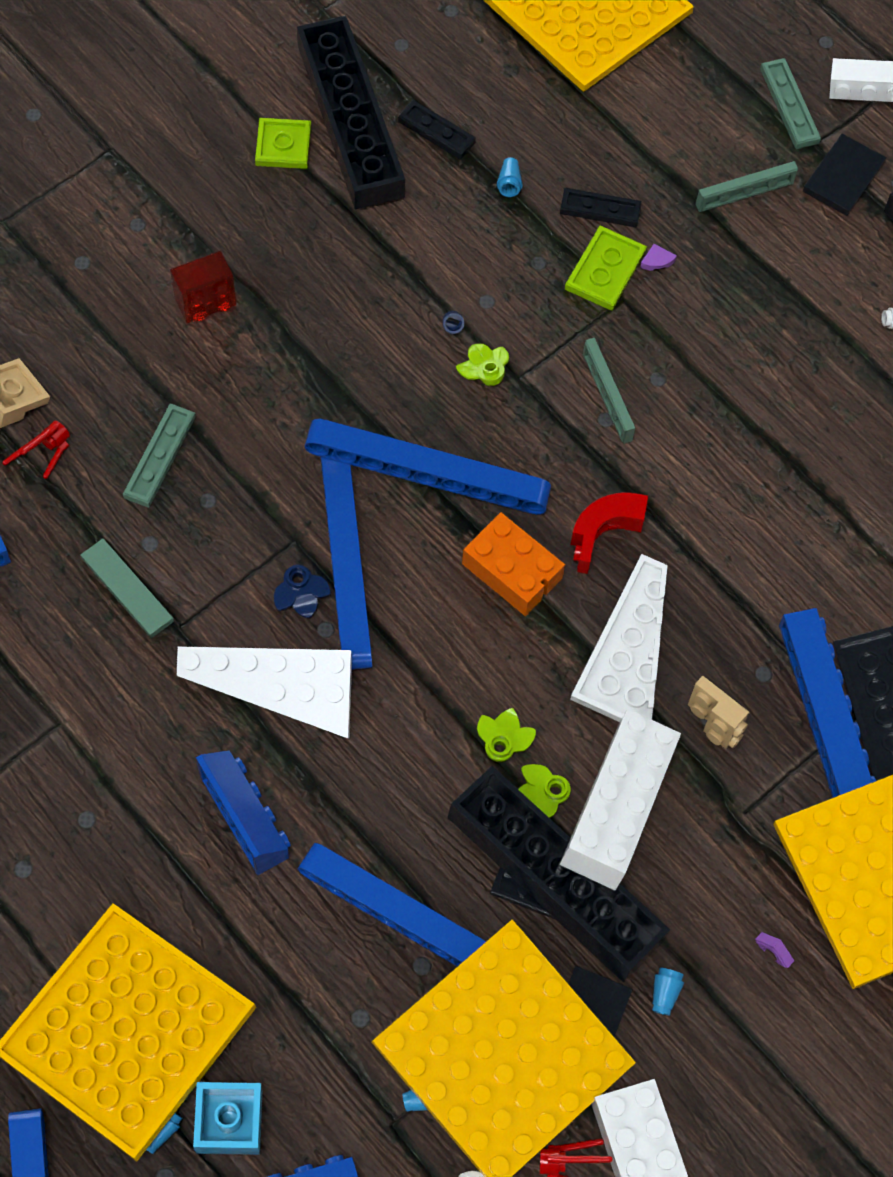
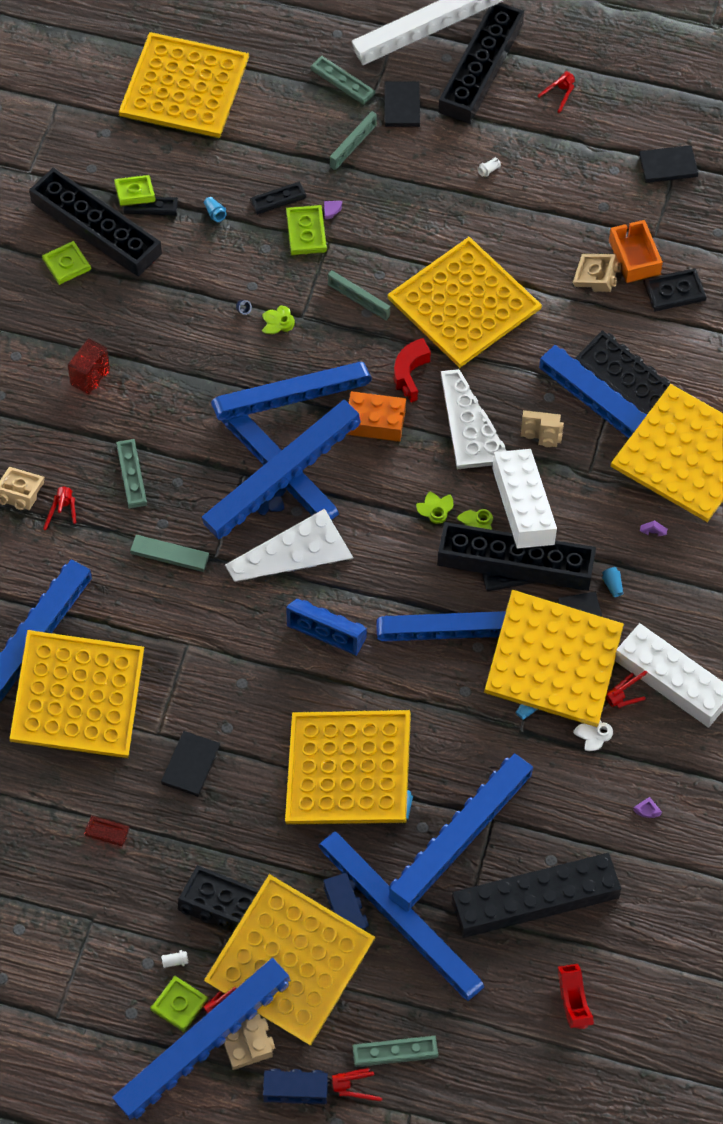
camera: 30 degrees left, 5 degrees down
(228, 1118) = (436, 775): medium azure brick -> none
(334, 564) = (281, 469): none -> blue brick
(429, 99) = (134, 190): none -> lime tile
(740, 479) = (464, 302): none -> yellow plate

